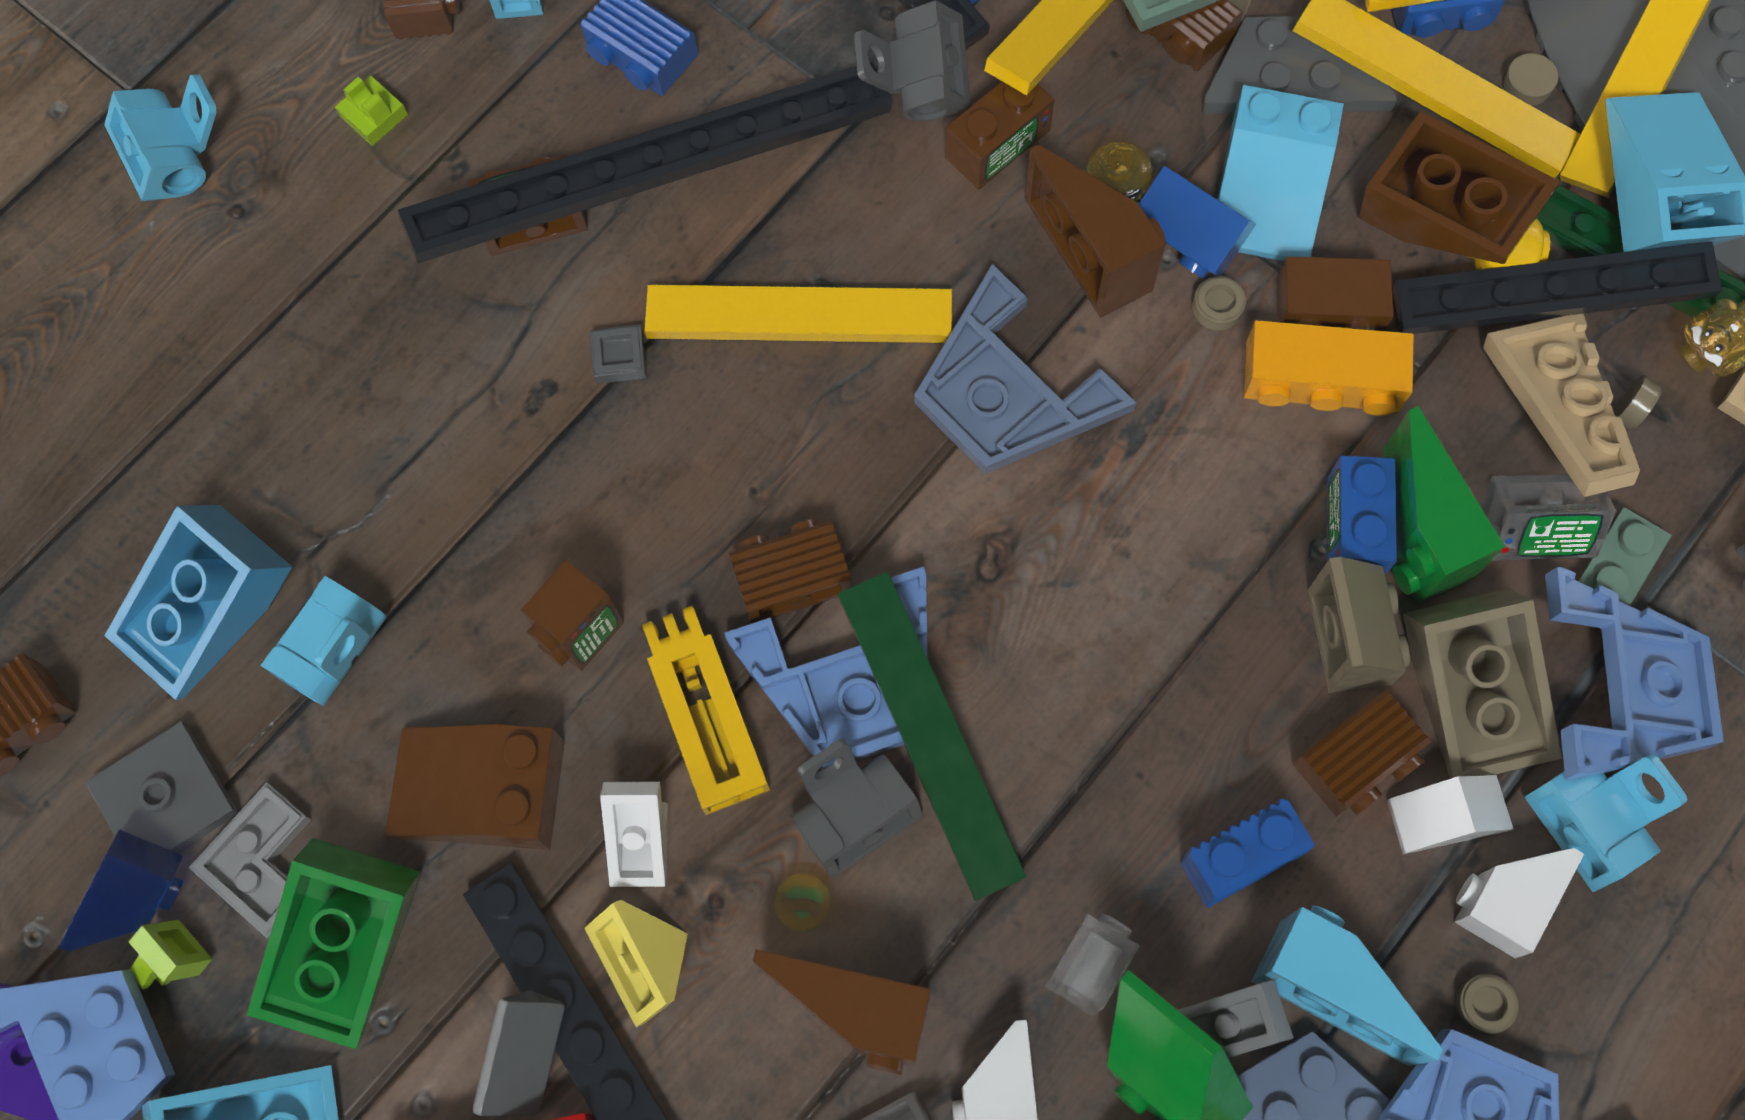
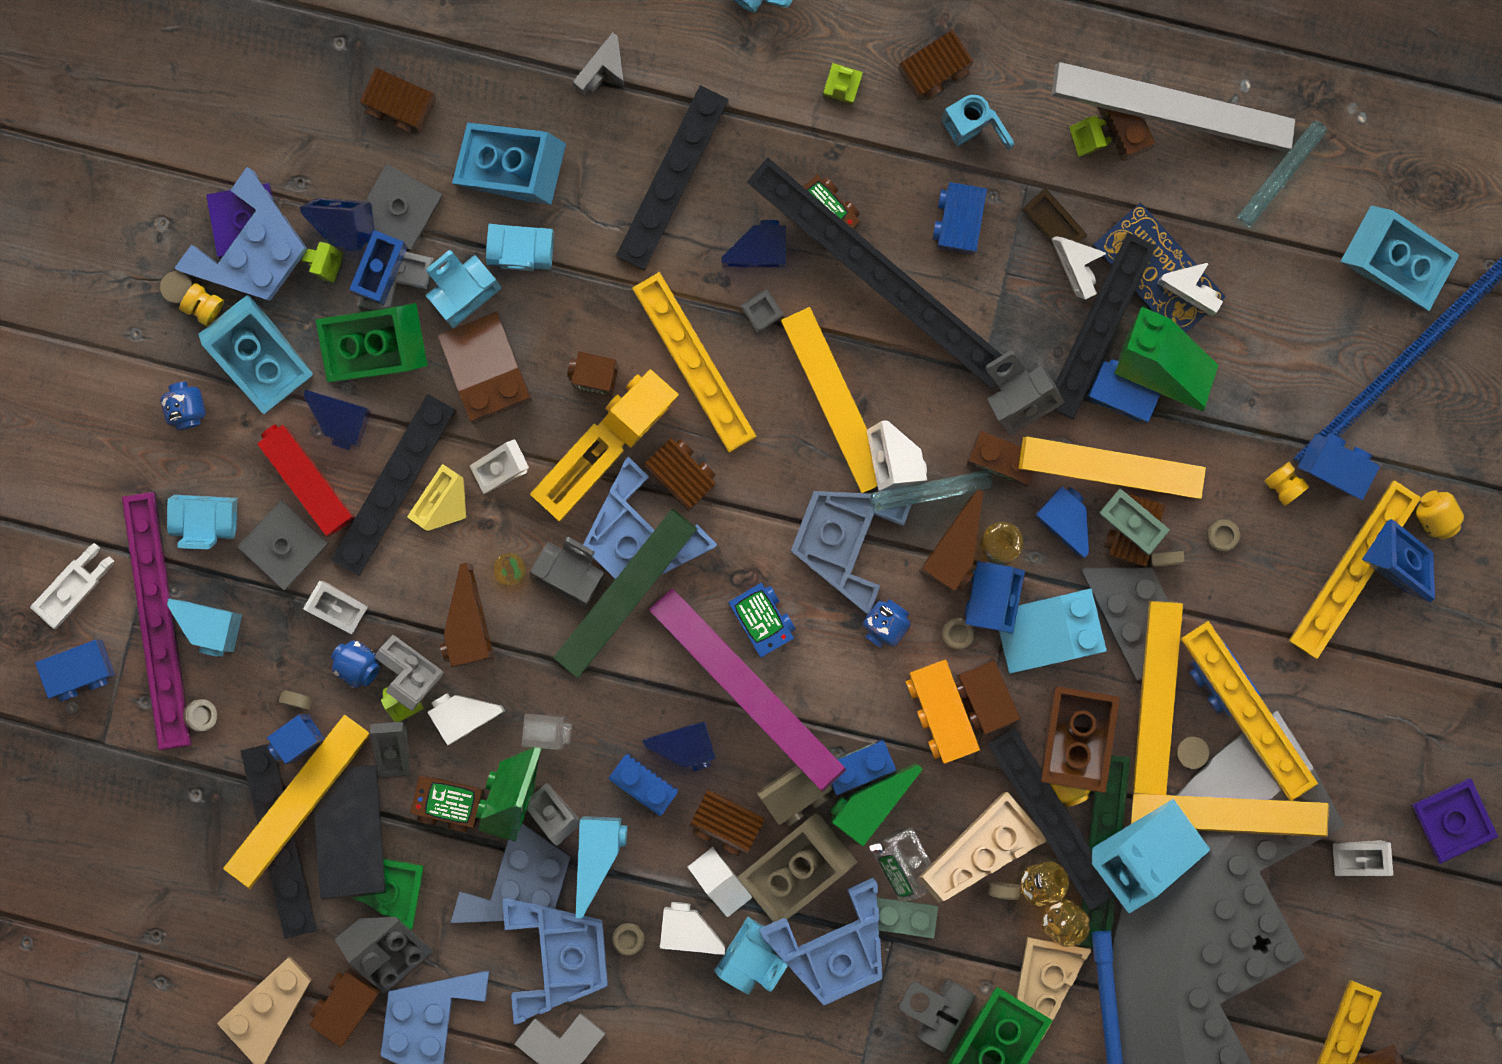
camera: 55 degrees right, 15 degrees up
(143, 397) = (606, 59): none -> light grey slope
(221, 865) = (378, 267): none -> blue brick
(330, 761) = (460, 287): none -> medium azure piece
(362, 389) = (672, 178): none -> black plate
(420, 1057) = (338, 419): none -> clear blue slope
(519, 1055) = (363, 468): dark grey slope -> none
(528, 310) = (759, 247): none -> clear blue slope
(638, 480) = (694, 362): none -> yellow tile
(660, 578) = (640, 407): none -> yellow brick
(923, 262) = (895, 457): none -> white slope
(995, 240) = (930, 490): none -> clear light blue axle
(1069, 556) = (761, 619): none -> brick
(1128, 89) = (1066, 519): none -> blue slope
(1160, 383) = (886, 623): none -> blue head
(1176, 612) = (747, 690): none -> magenta tile
(1212, 760) = (685, 746): none -> clear blue slope
(1652, 339) = (1044, 883): none -> clear yellow head

